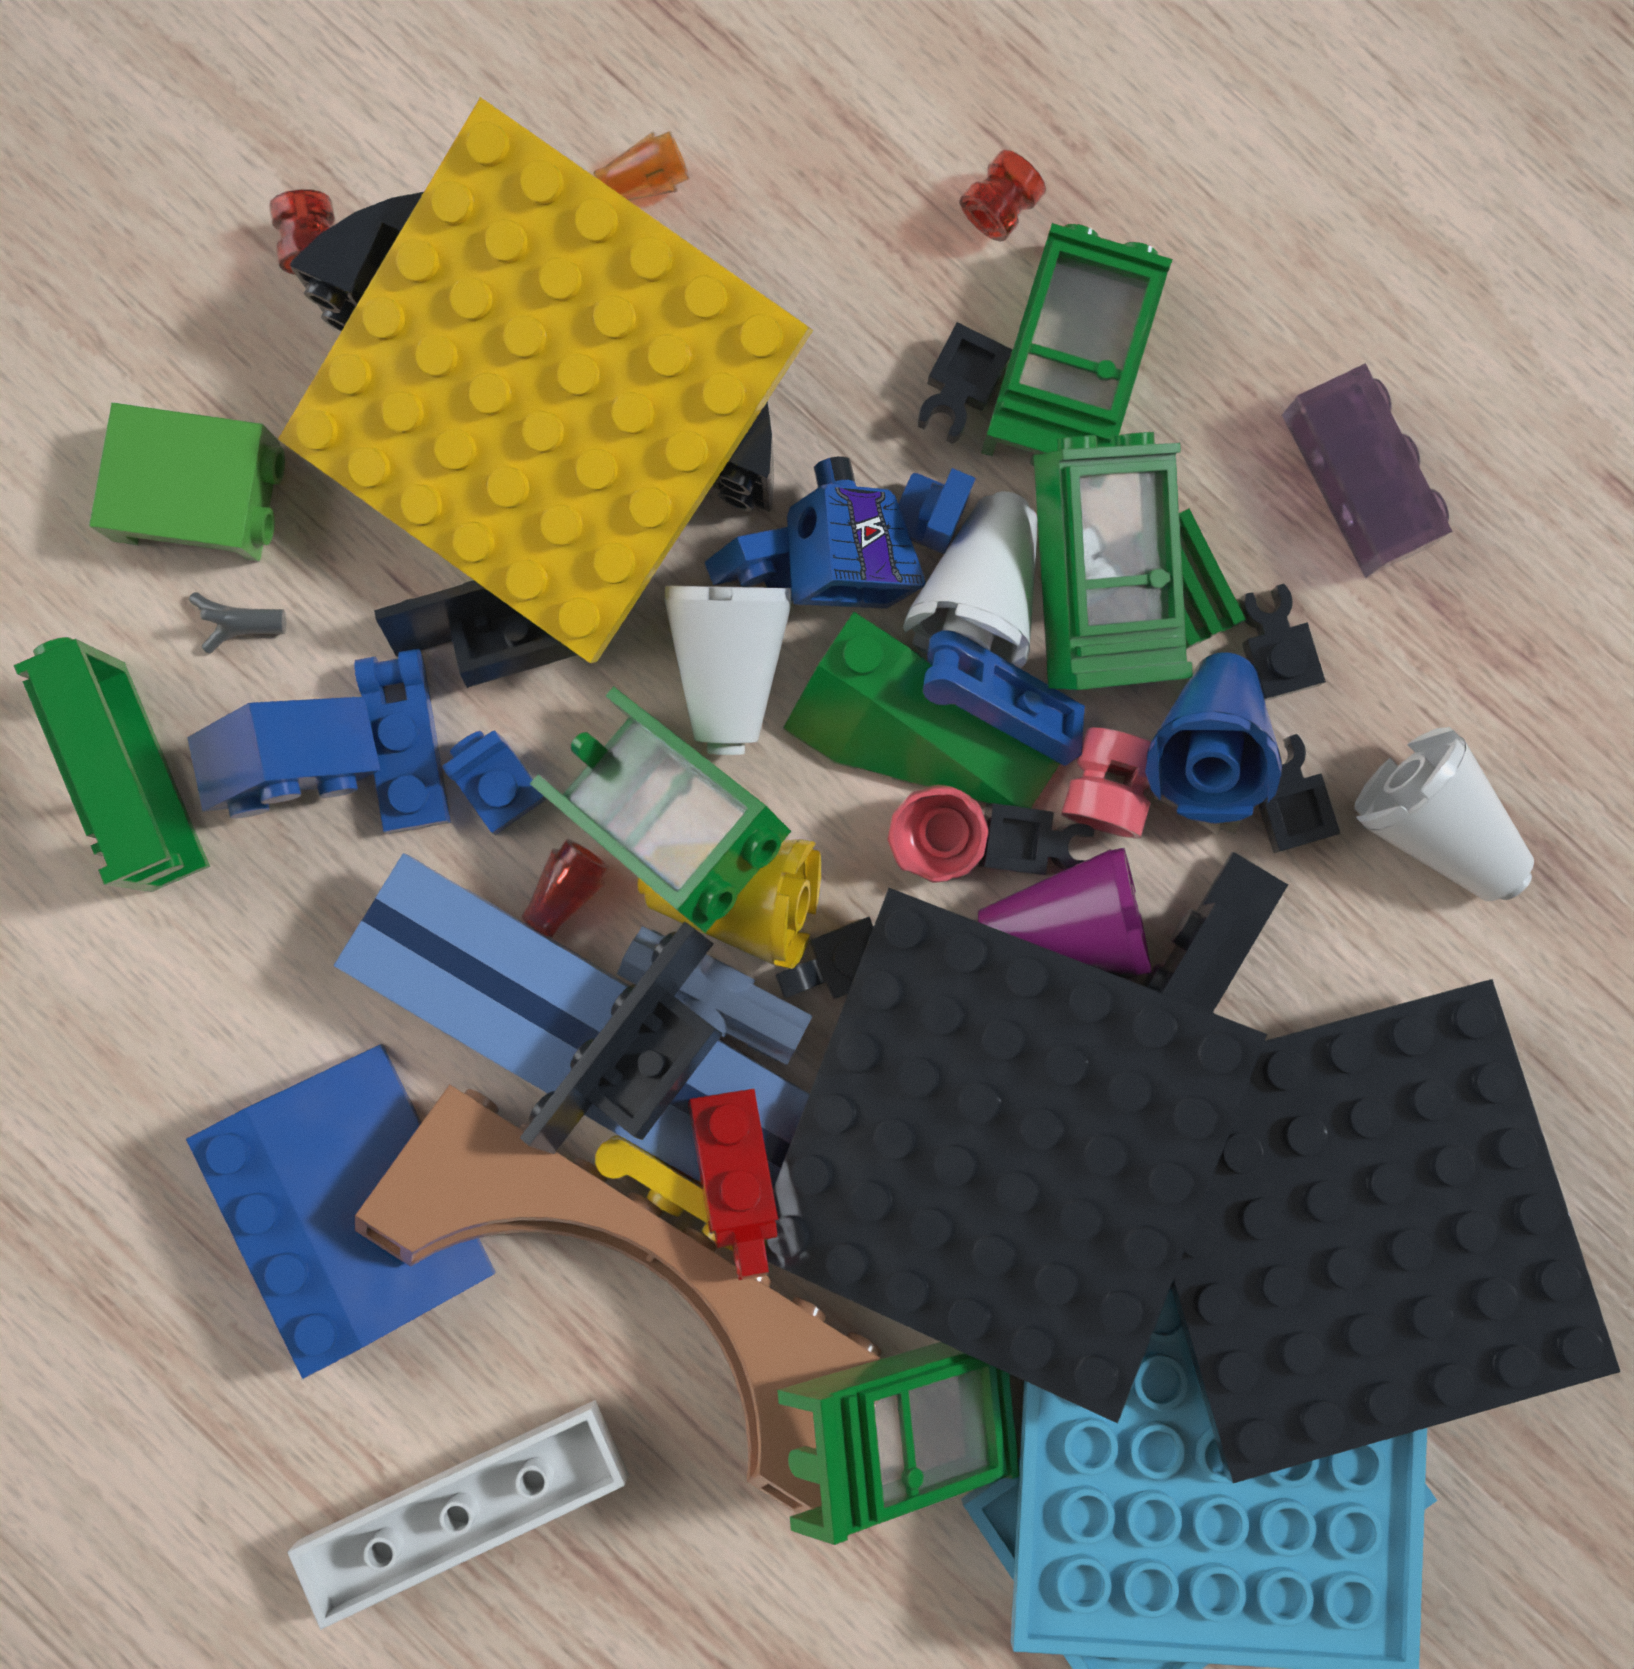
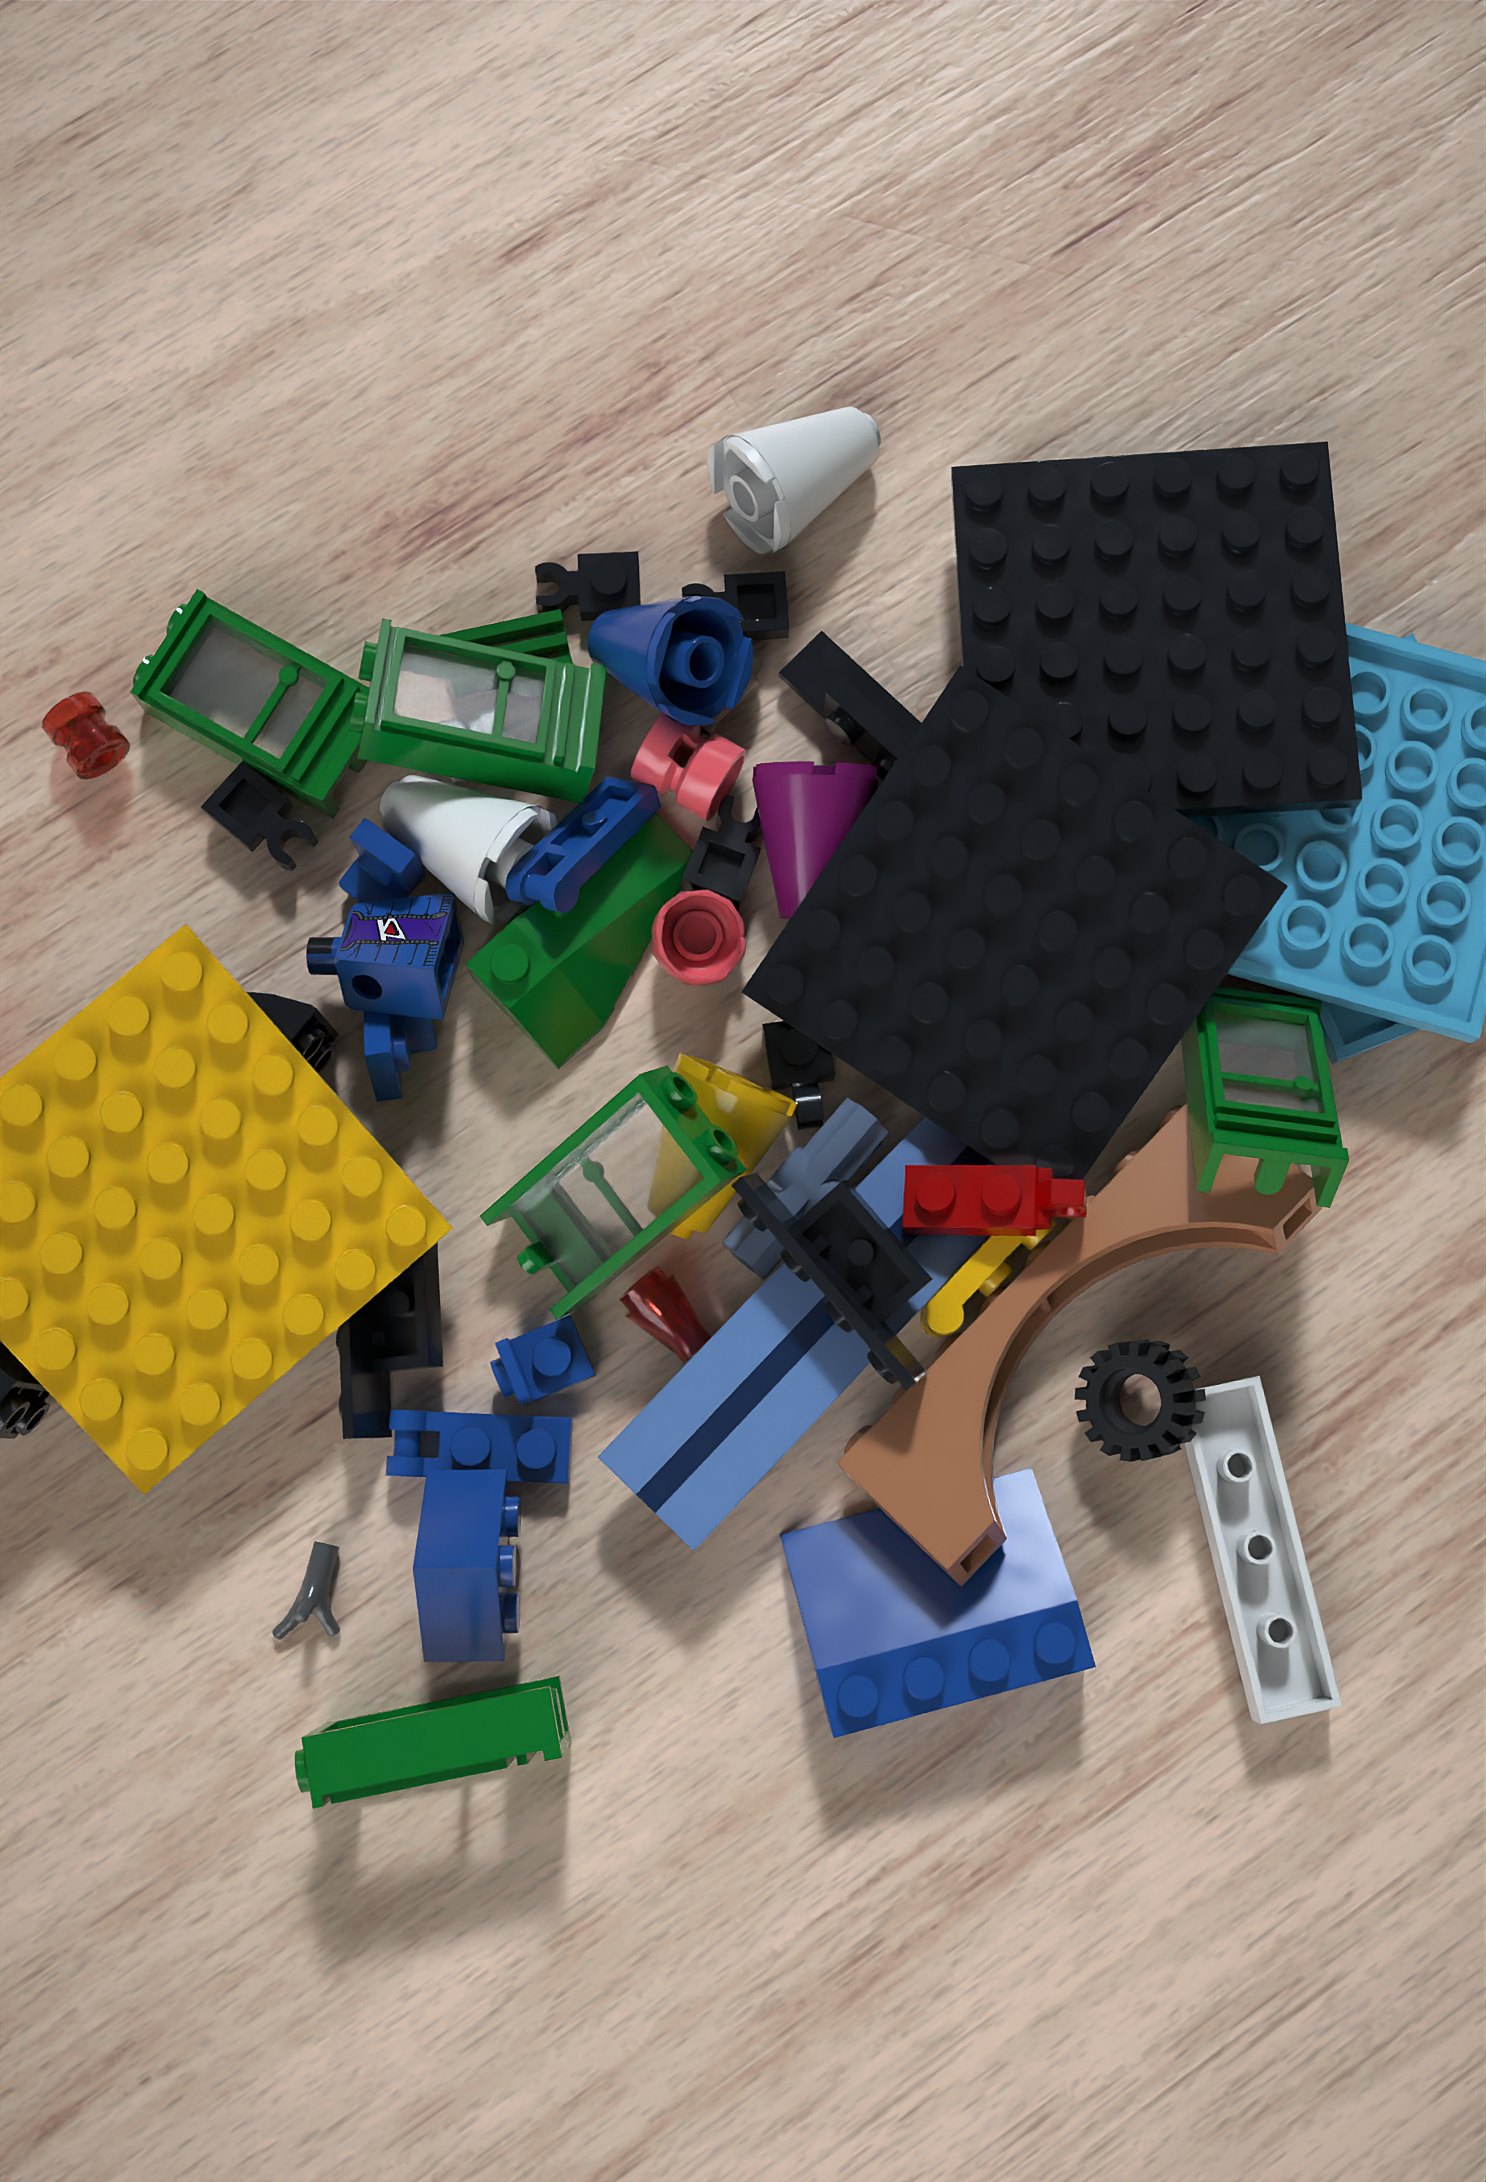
camera: 75 degrees left, 5 degrees down
(187, 480) = (156, 1609): bright green panel -> none
(545, 1350) = (1104, 1407): none -> black tyre
(727, 658) = (477, 1099): white cone -> none
(1367, 470) = (446, 465): clear purple brick -> none

